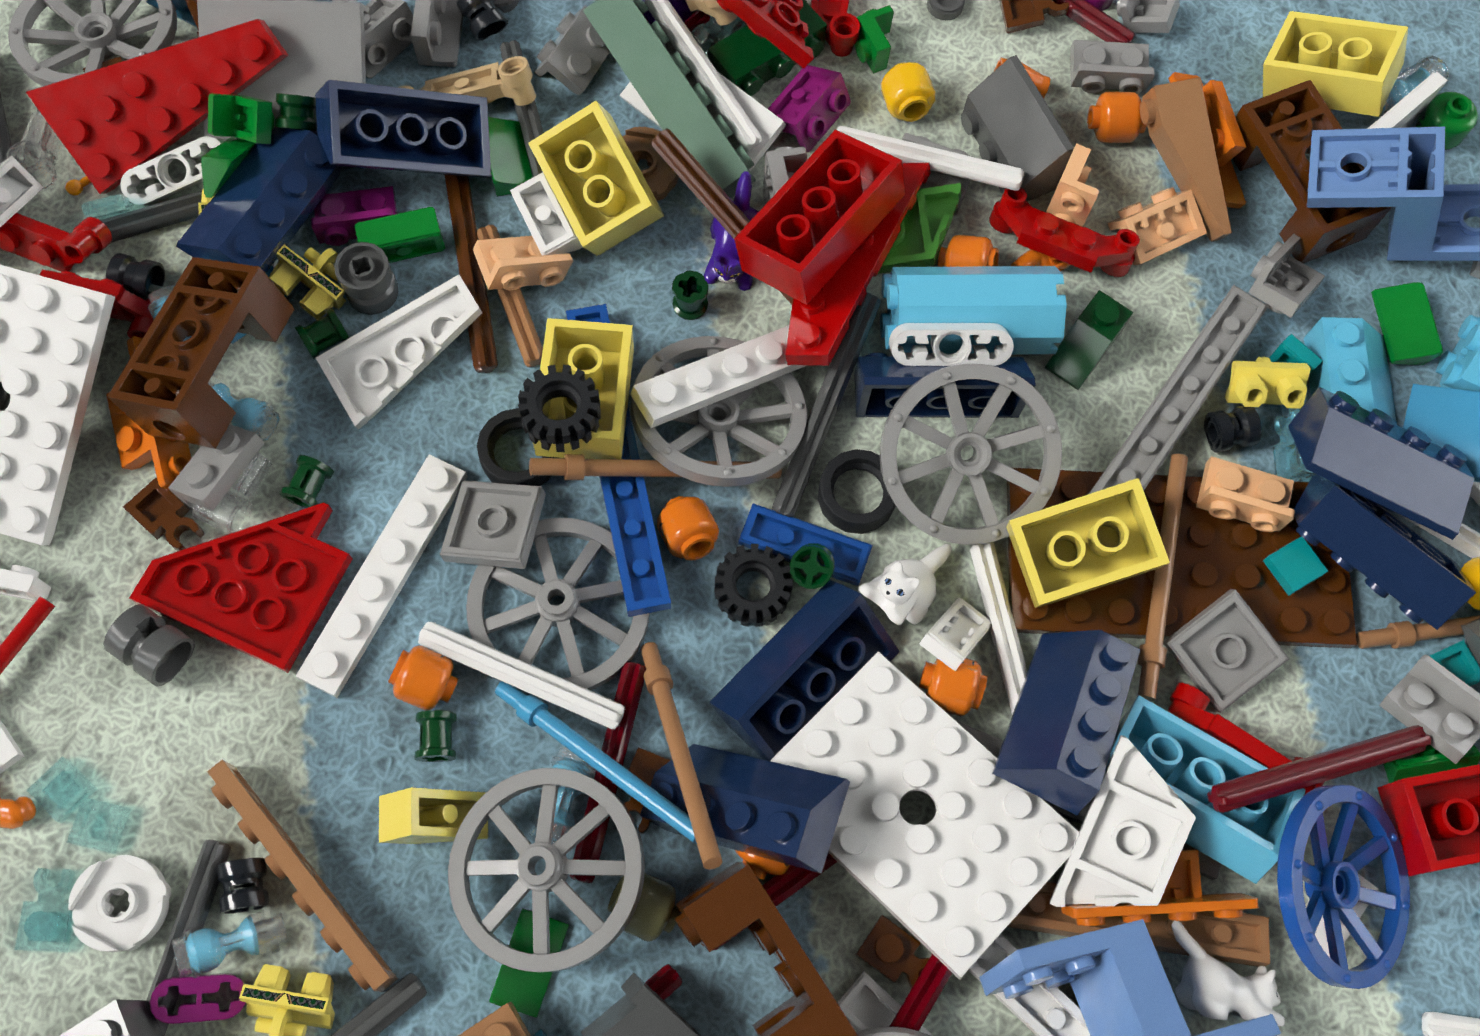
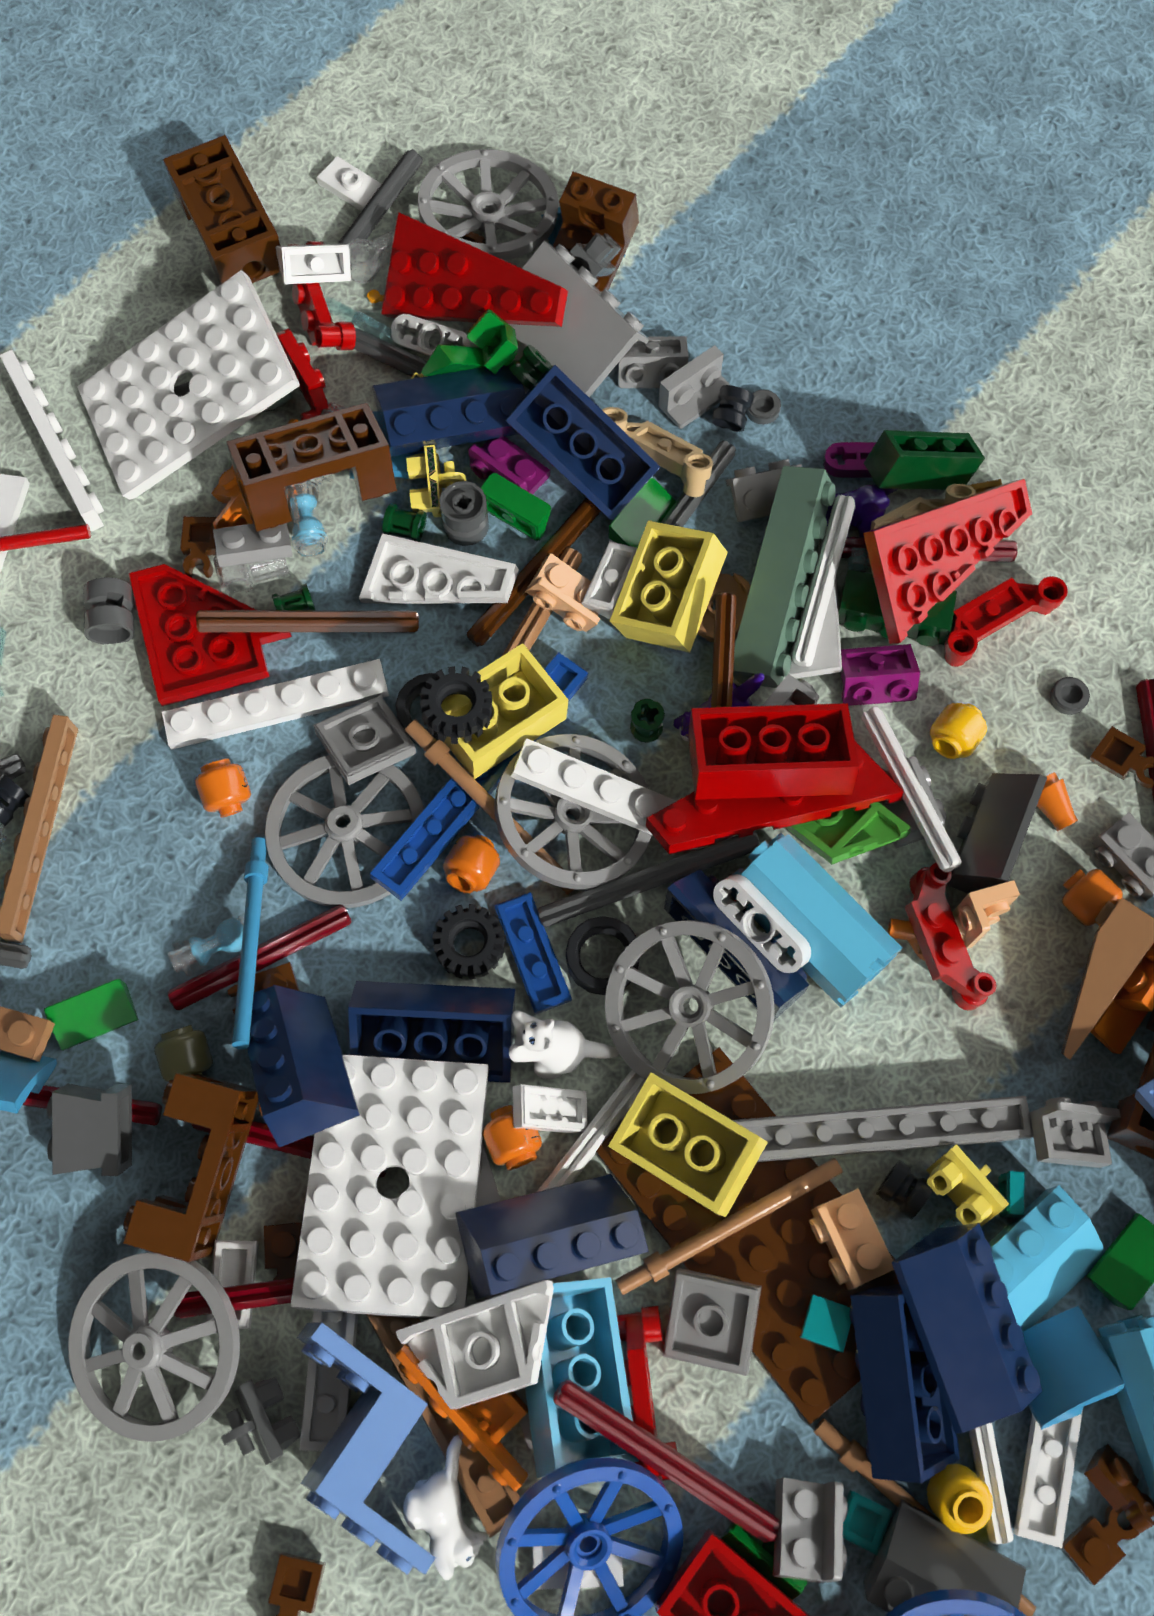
camera: 55 degrees right, 0 degrees up
(135, 275) = (341, 383): black wheel -> none
(334, 484) = (306, 621): none -> reddish brown axle
(424, 815) = (137, 874): light yellow slope -> none
(435, 736) = (191, 829): dark green bush -> none
(521, 675) = (273, 846): white axle -> none
(554, 875) = (154, 973): light grey wheel -> none
(659, 684) = (341, 938): medium nougat bar -> none
(804, 571) = (504, 967): dark green wheel -> none
(871, 42) = (984, 660): green bracket -> none
(968, 252) = (862, 882): orange head -> none
(1089, 339) = (876, 1023): dark green slope -> none
(1162, 224) = (1030, 1001): light nougat bracket -> none

